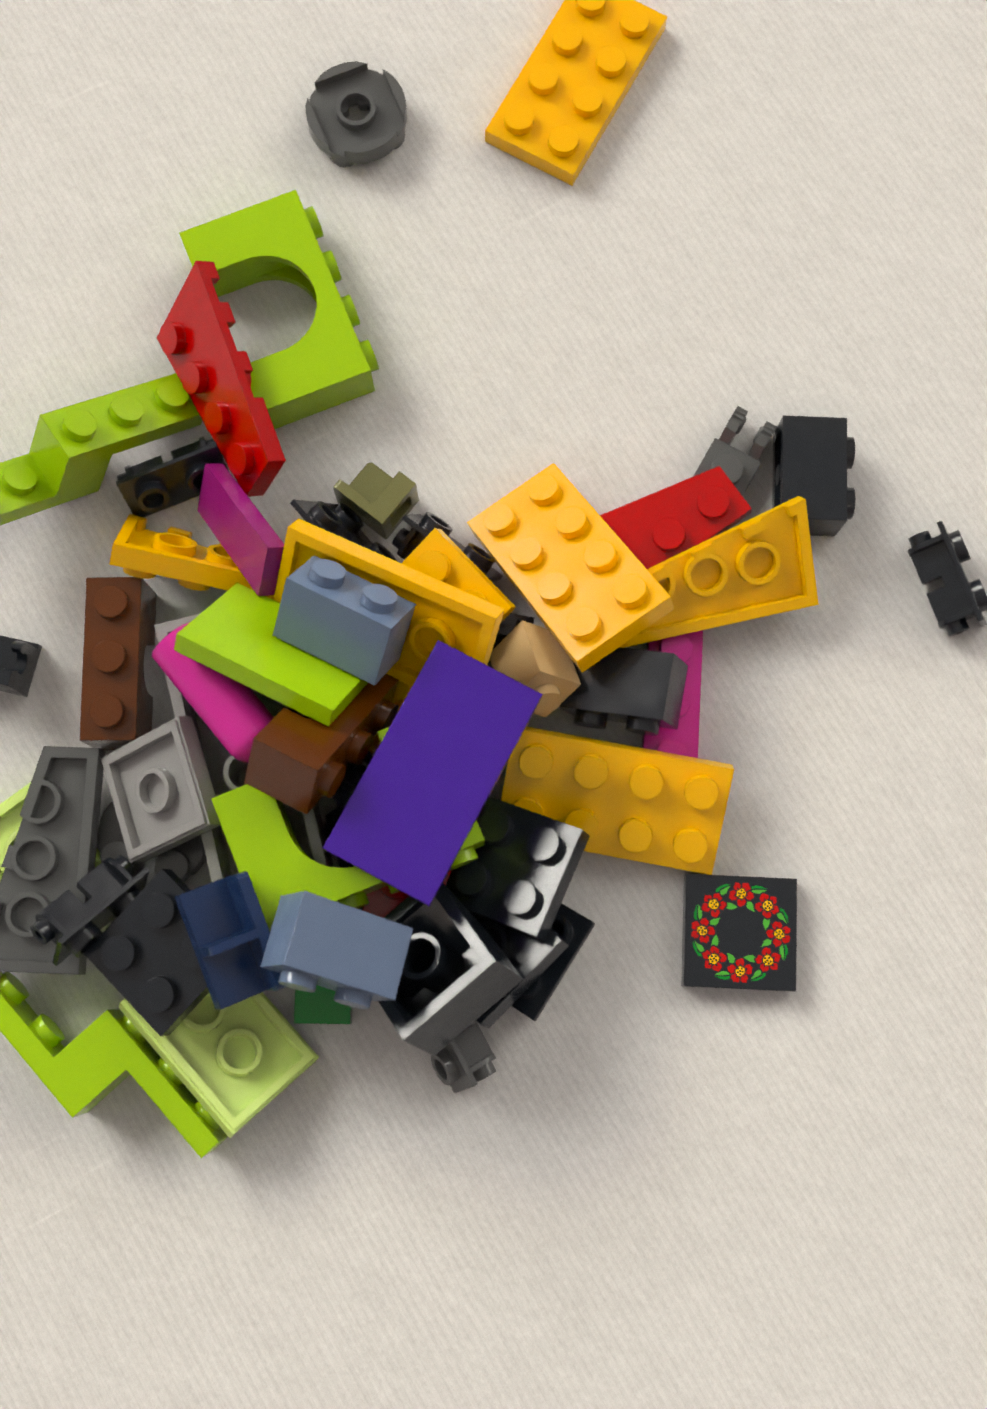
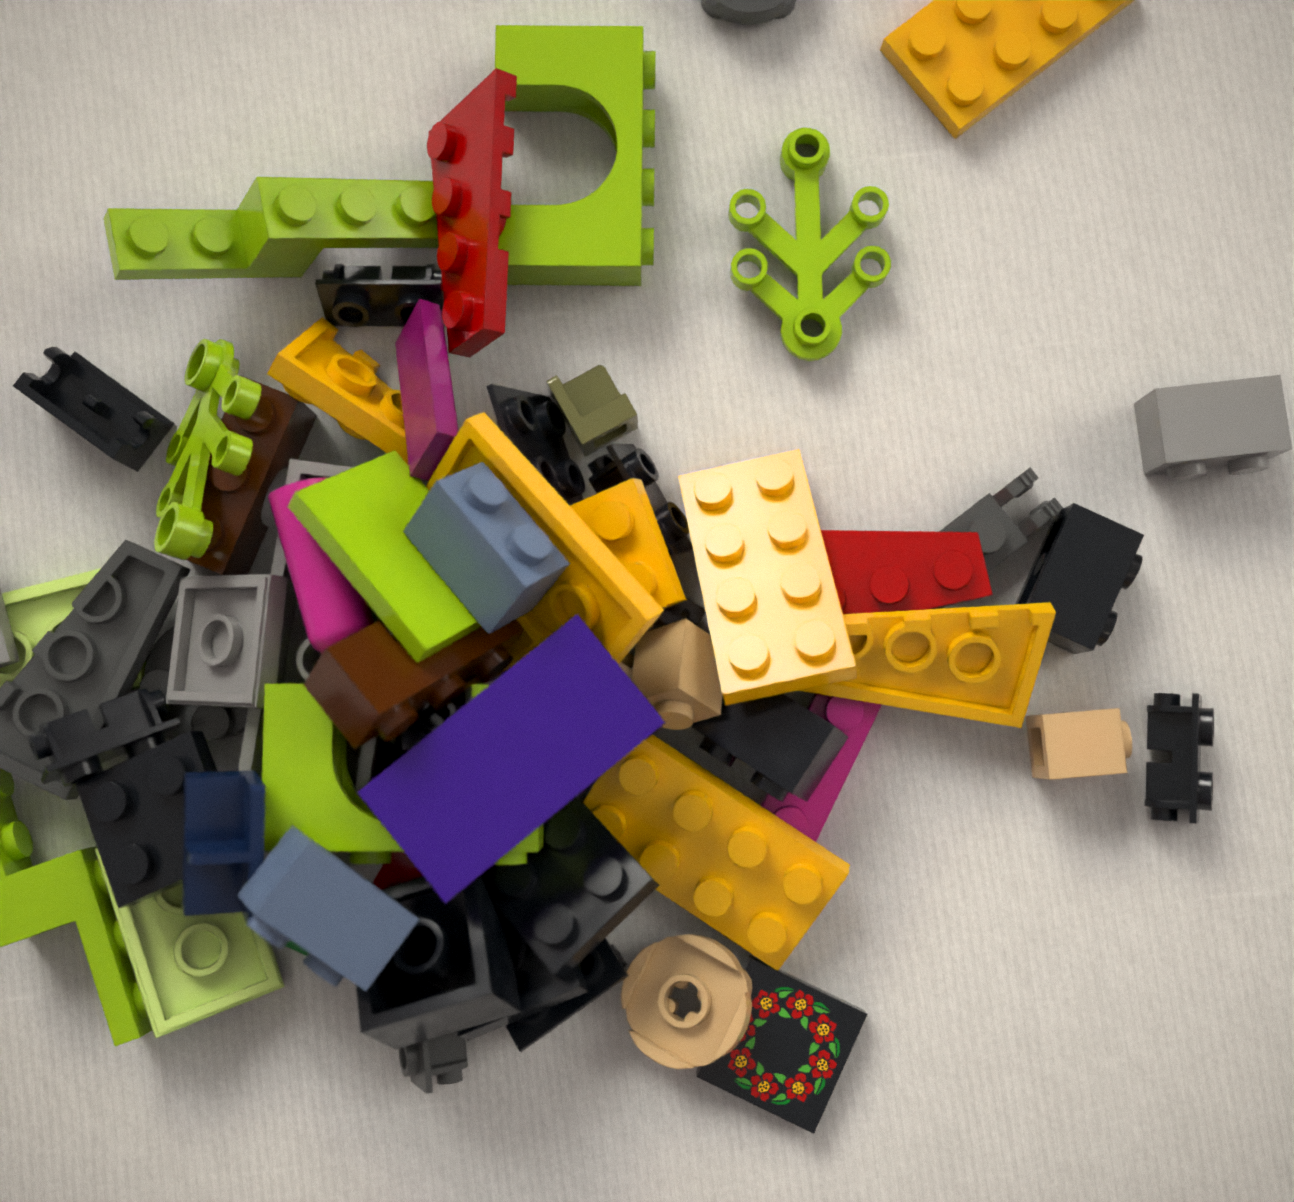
camera: 25 degrees right, 5 degrees up
(68, 653) = (213, 374): none -> lime plant
(496, 313) = (808, 255): none -> lime plant
(673, 950) = (652, 1011): none -> tan plate
(862, 320) = (1212, 426): none -> light grey brick
(866, 599) = (1078, 744): none -> tan brick

